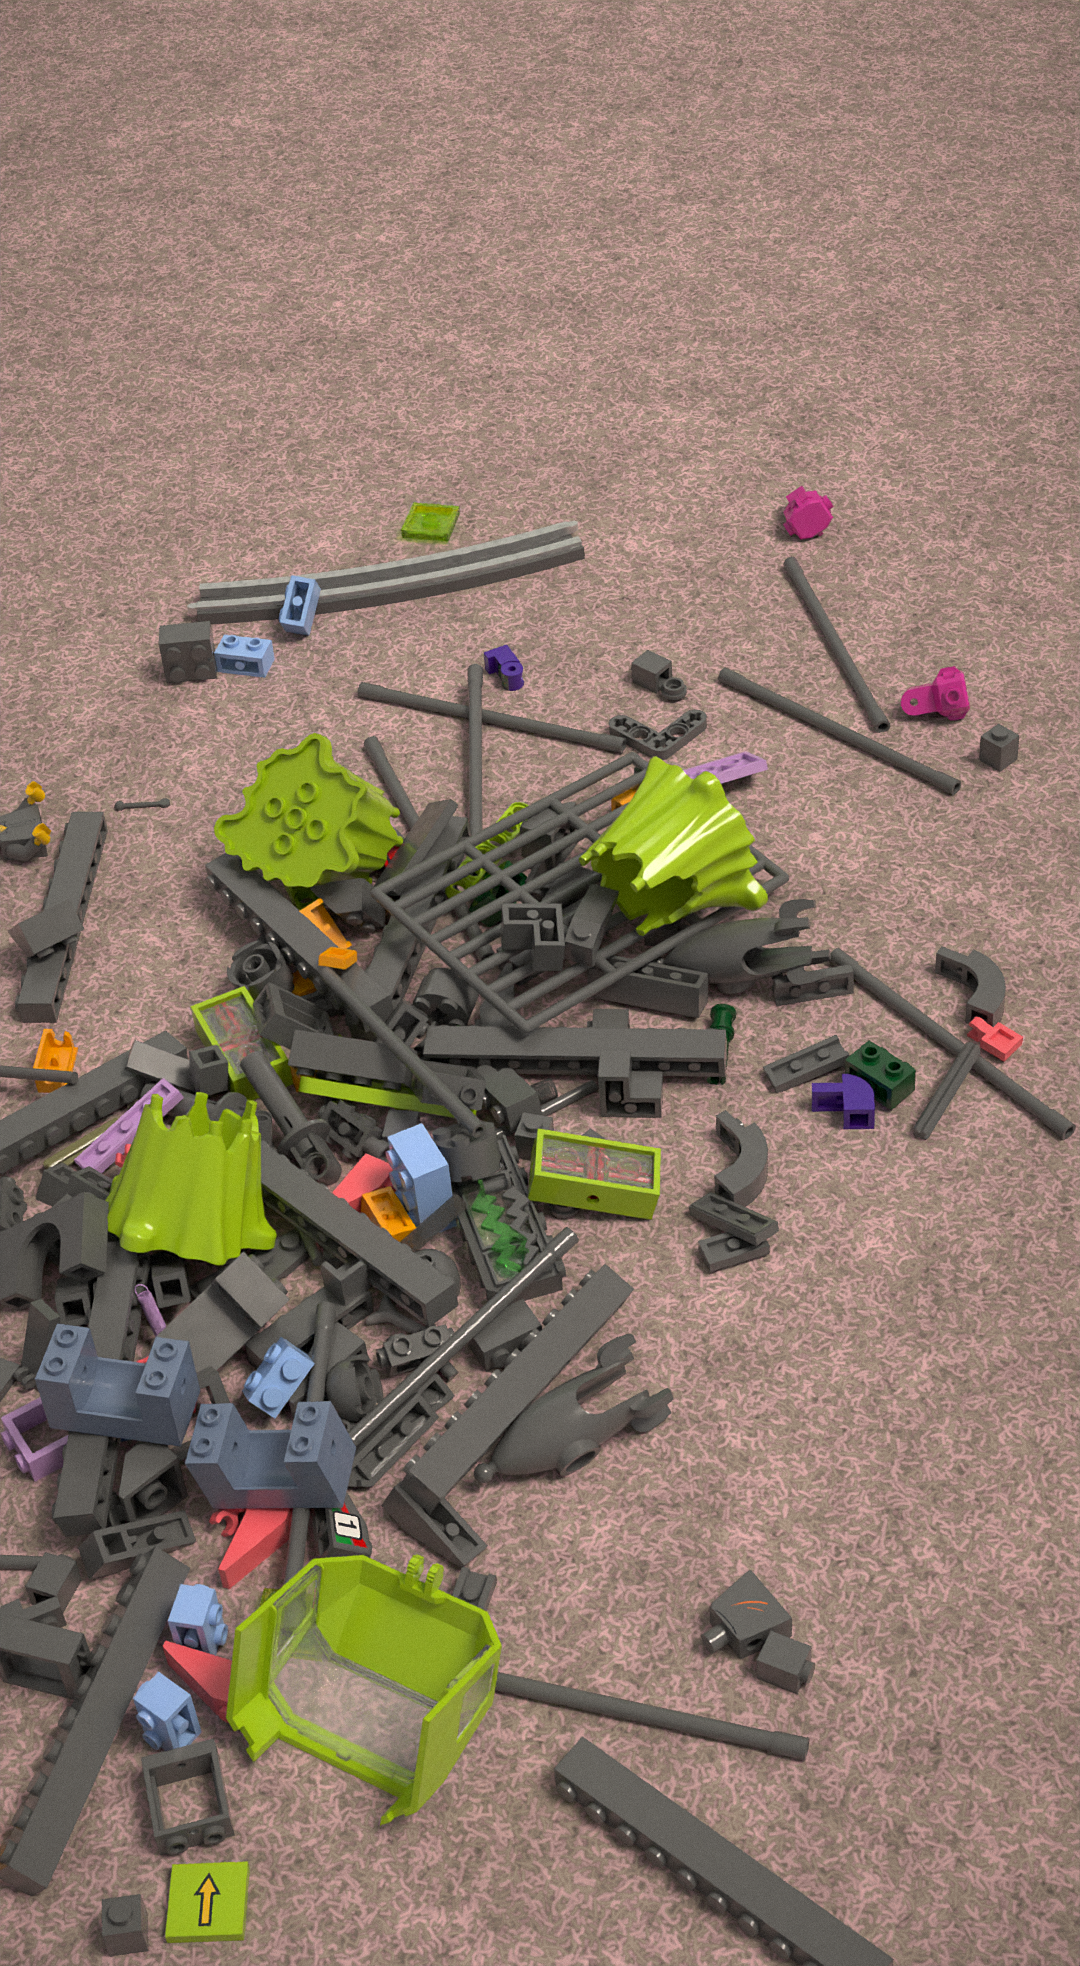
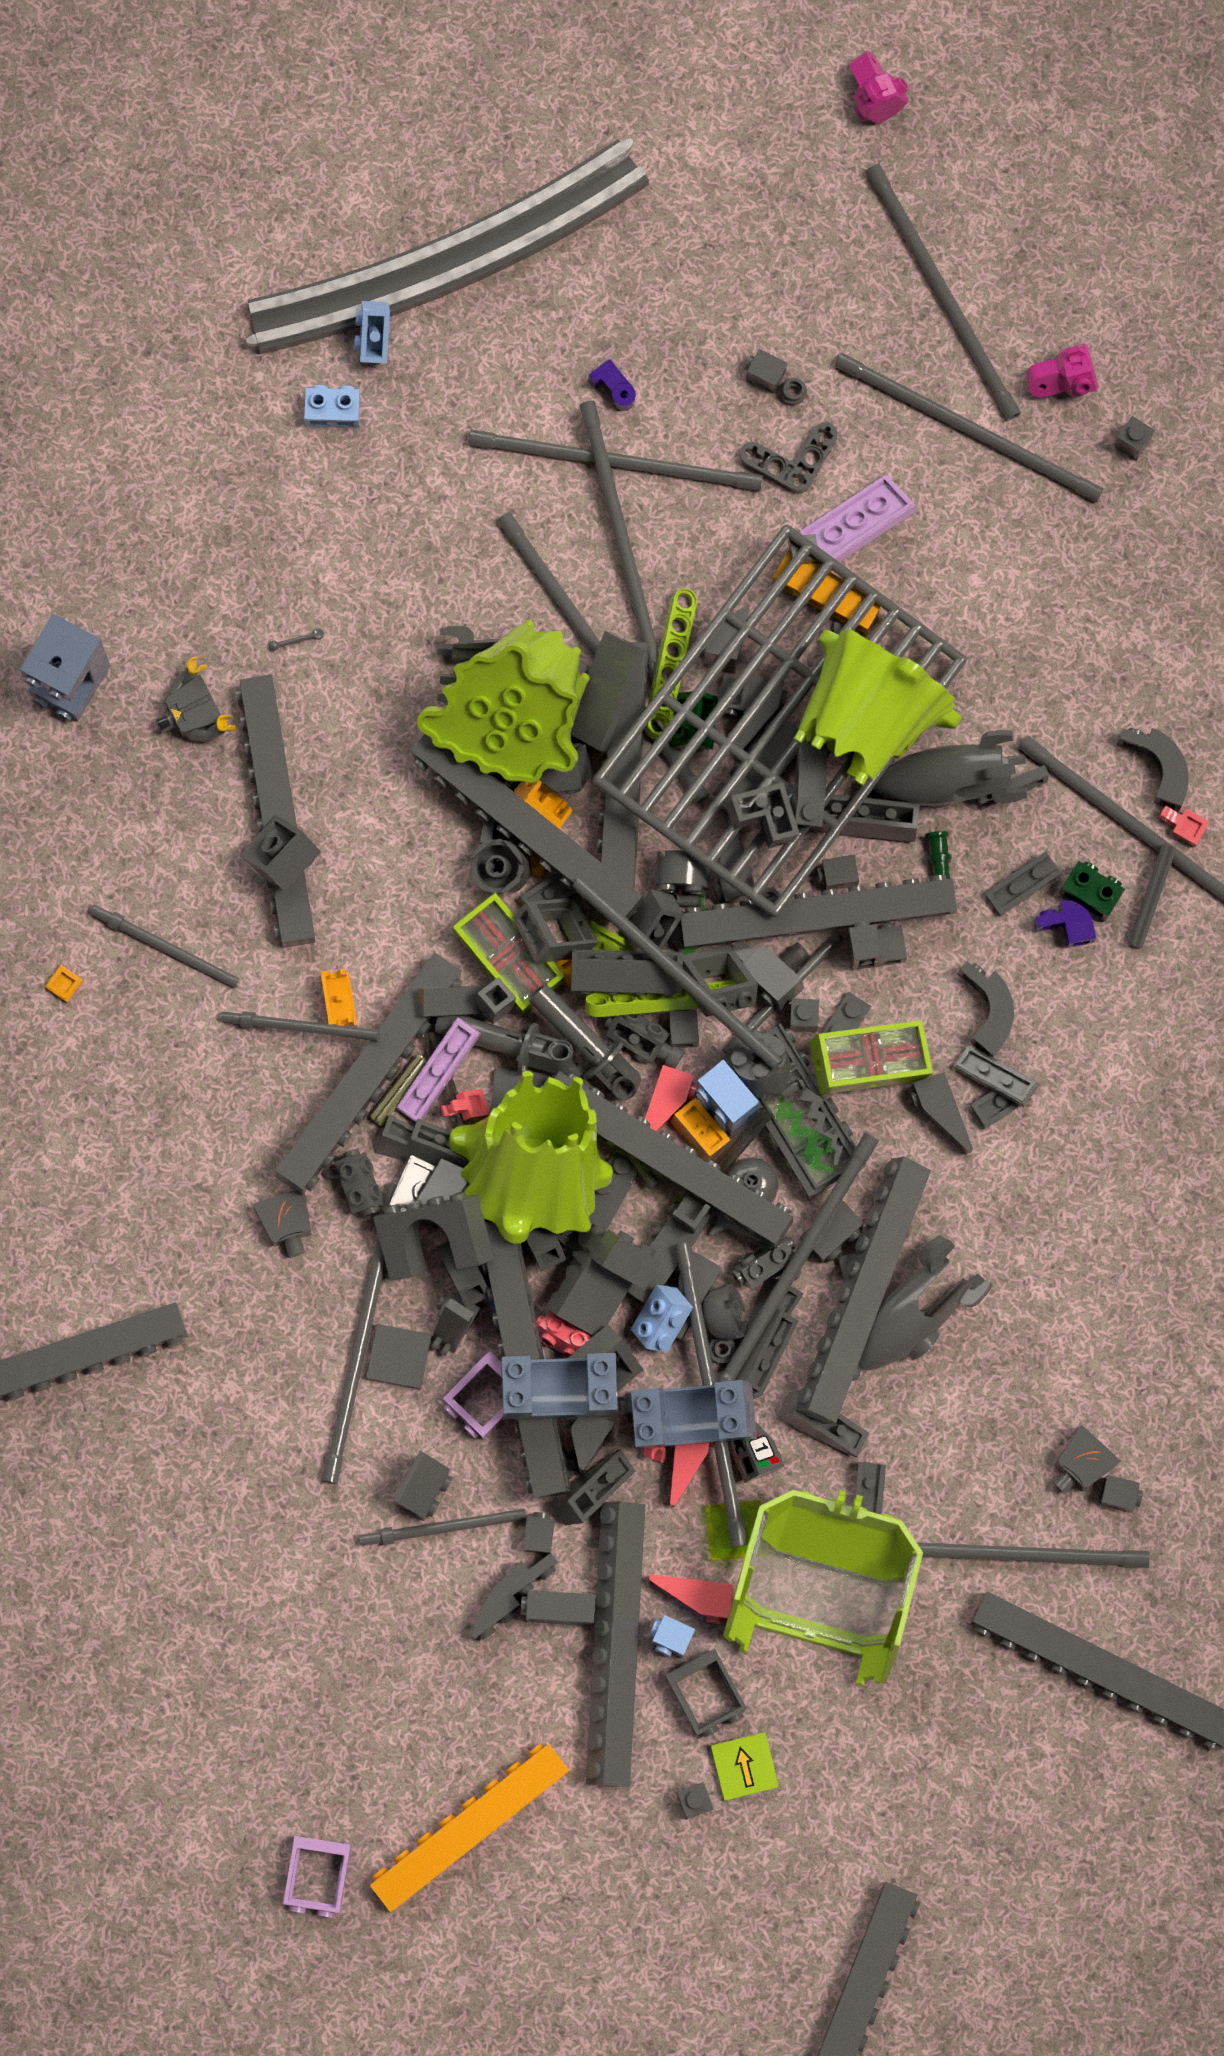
camera: 20 degrees left, 35 degrees up
(151, 1310) = (539, 1279): lavender piece -> none
(187, 651) = (277, 423): dark grey piece -> none
(198, 1619) = (671, 1554): light blue brick -> none
(337, 958) = (584, 865): light orange tile -> none
(430, 522) = (467, 152): clear neon green plate -> none
(662, 1242) = (939, 1106): none -> dark grey slope

